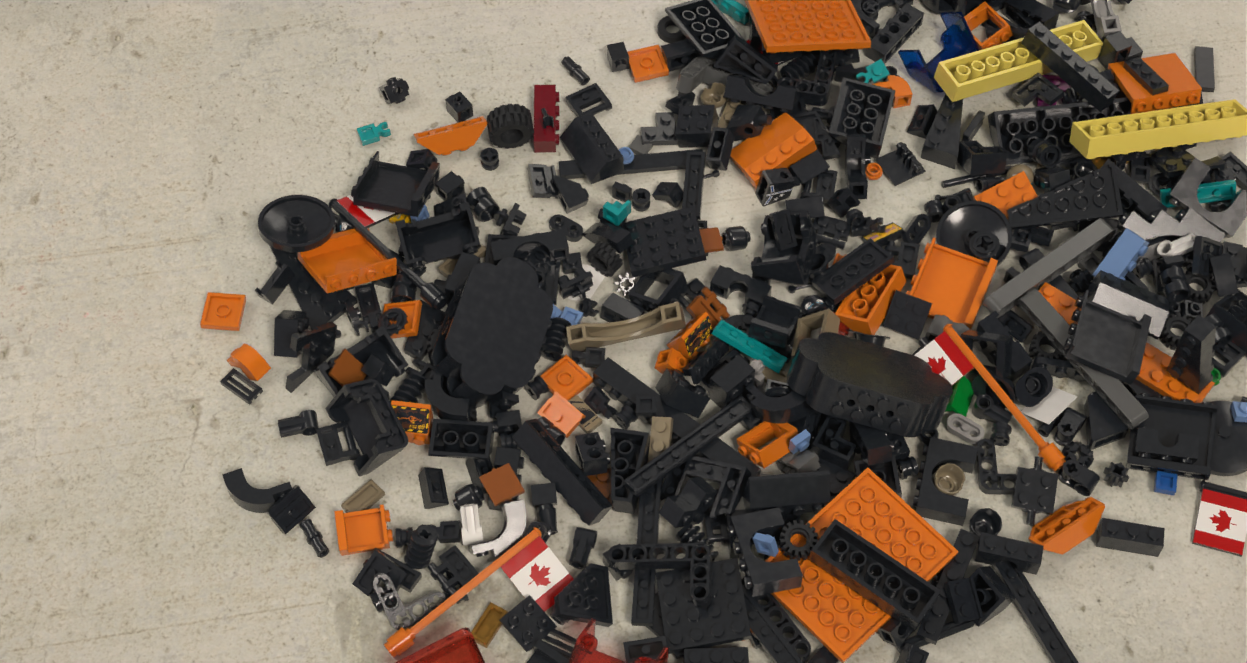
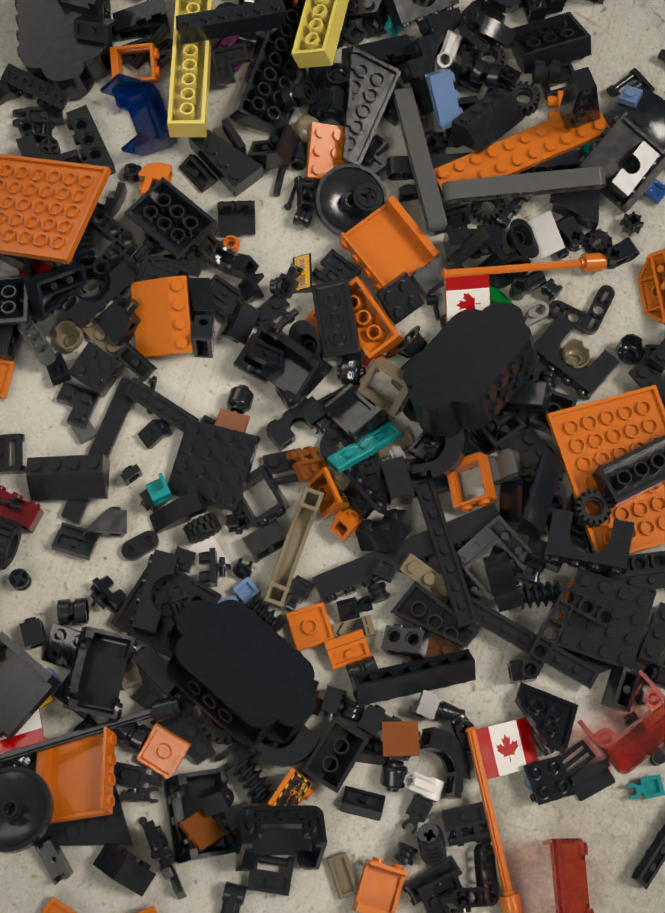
camera: 65 degrees left, 15 degrees up
(393, 314) = (158, 756): black gear -> none
(488, 625) = (527, 815): pearl gold tile -> none
(536, 387) = (308, 653): black wheel -> none
(583, 542) = (488, 692): black piece -> none
(628, 155) = (92, 448): medium blue plate -> none
(641, 204) = (150, 465): black wheel -> none
(765, 544) = (582, 536): medium blue plate -> none
(799, 442) = (493, 456): medium blue plate -> none
(875, 72) = (131, 182): teal plate -> none
(915, 231) = (314, 242): black plate -> none
(1034, 490) = (618, 293): black plate -> none
(1107, 340) = (524, 154): black panel -> none

